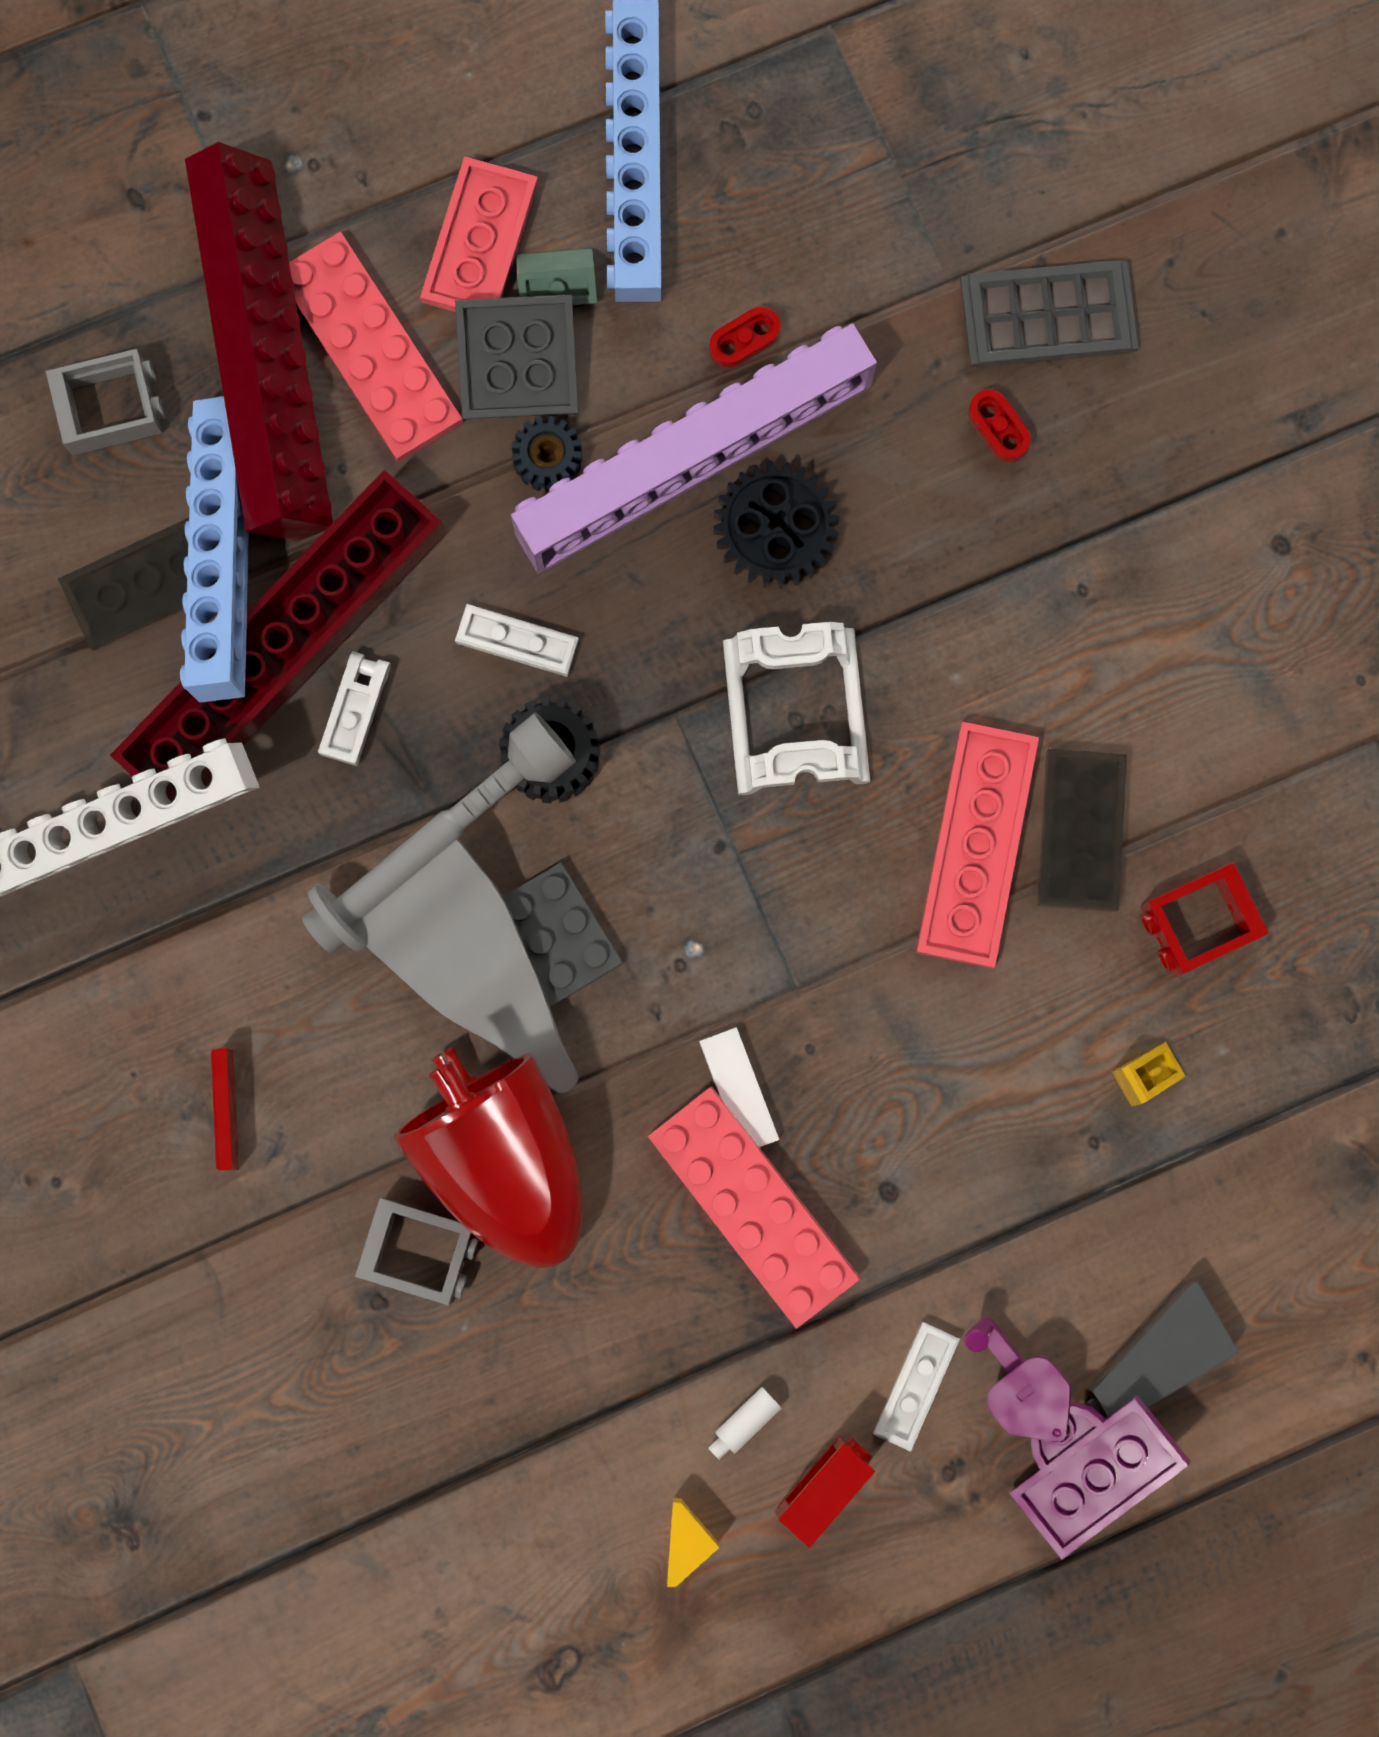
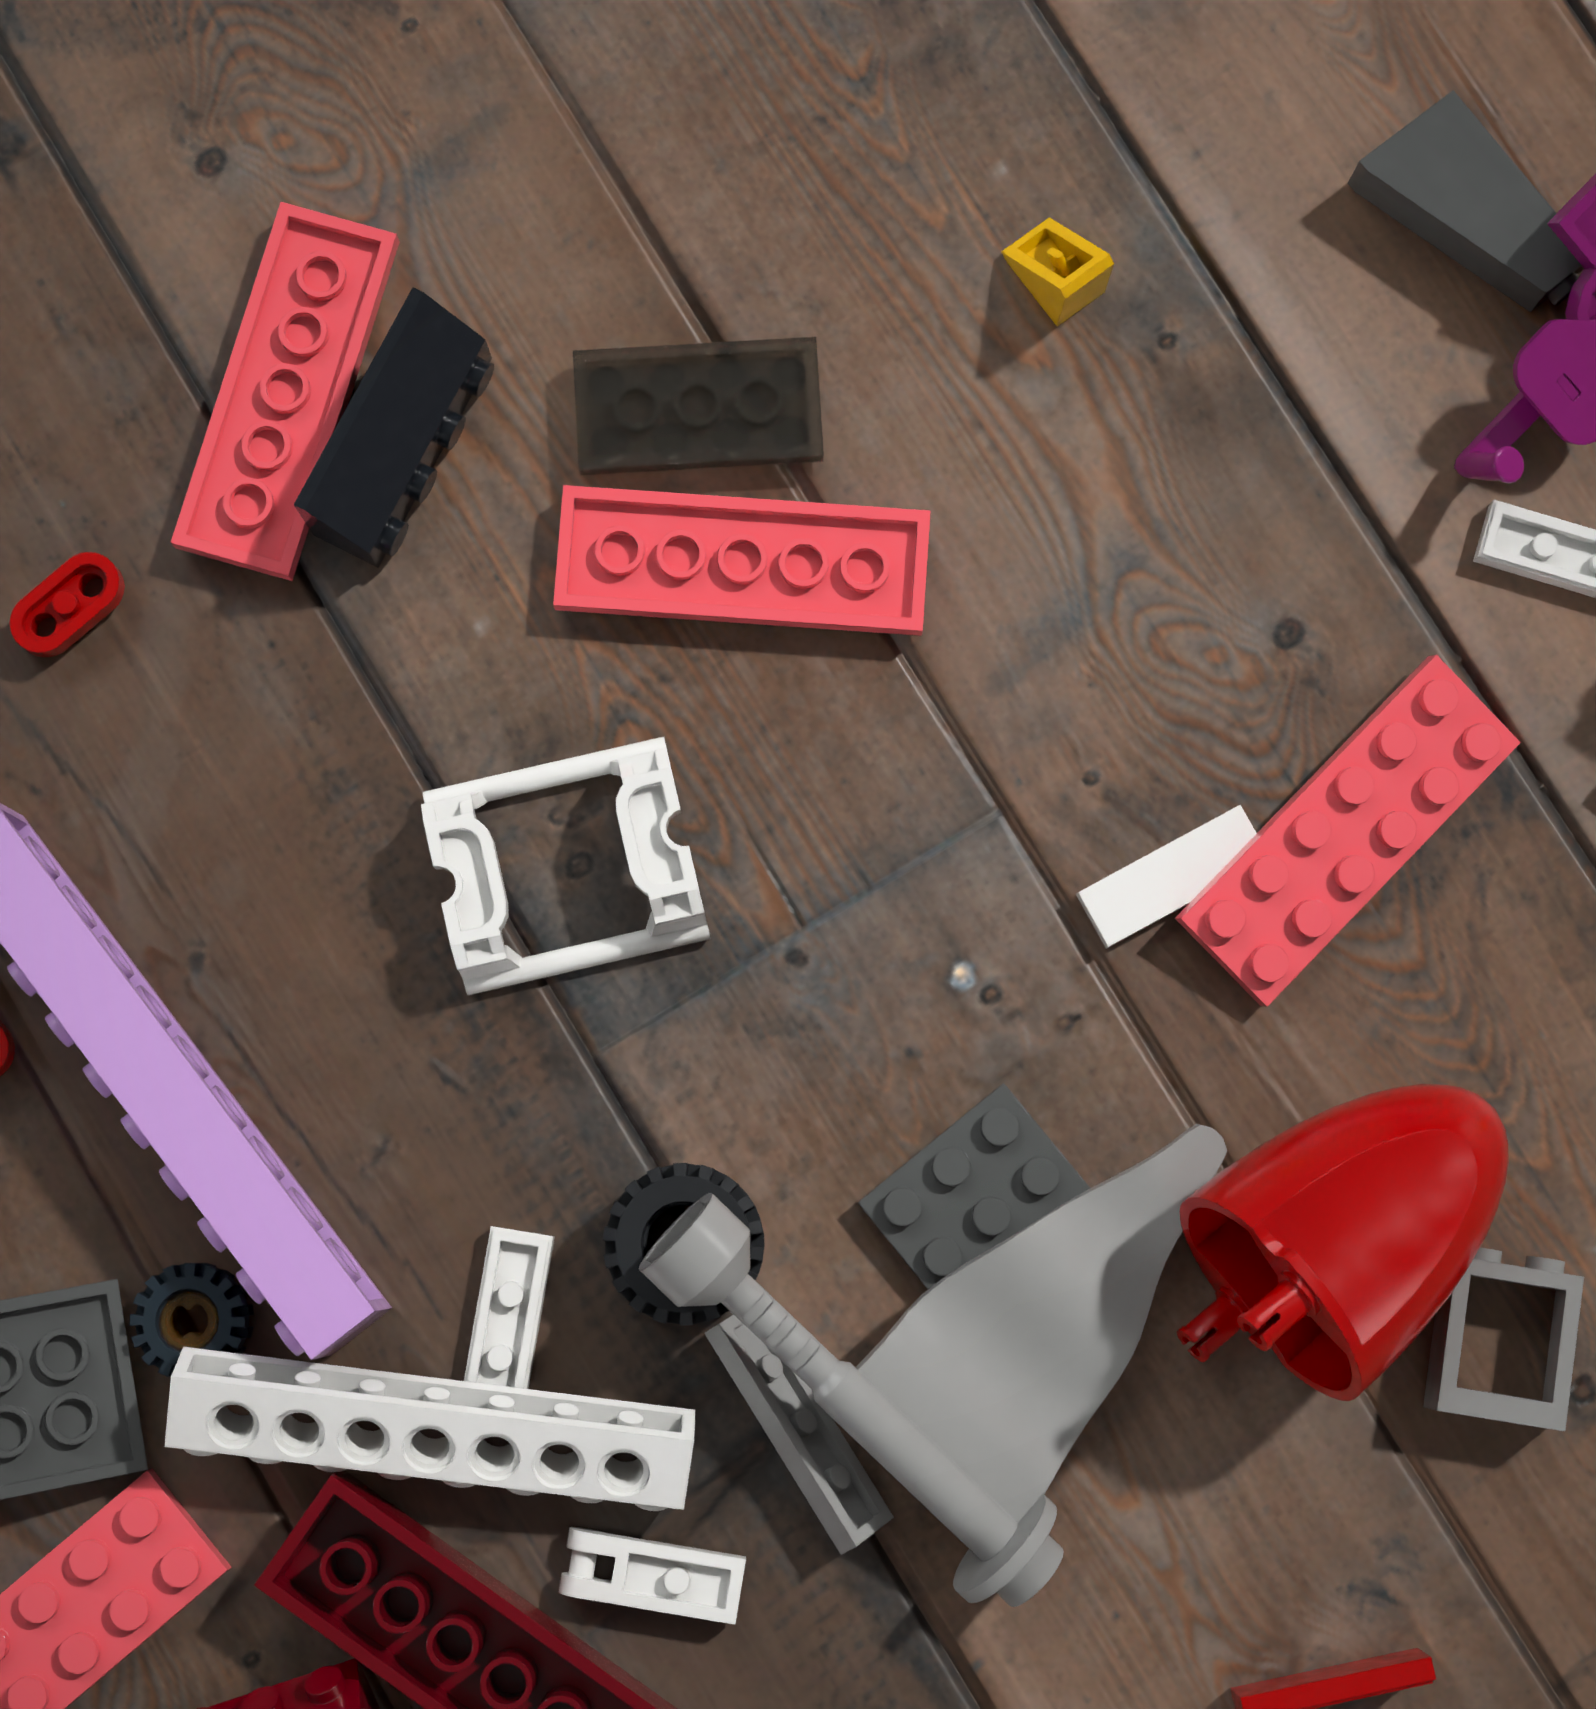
camera: 95 degrees left, 0 degrees up
(406, 815) = (803, 1437): none -> light grey plate
(467, 605) = (408, 1403): none -> white brick
(752, 549) = (223, 903): black gear -> none
(1085, 636) = (395, 431): none -> black slope
(1122, 574) = (284, 388): none -> coral plate
(1238, 902) = (784, 161): red window -> none

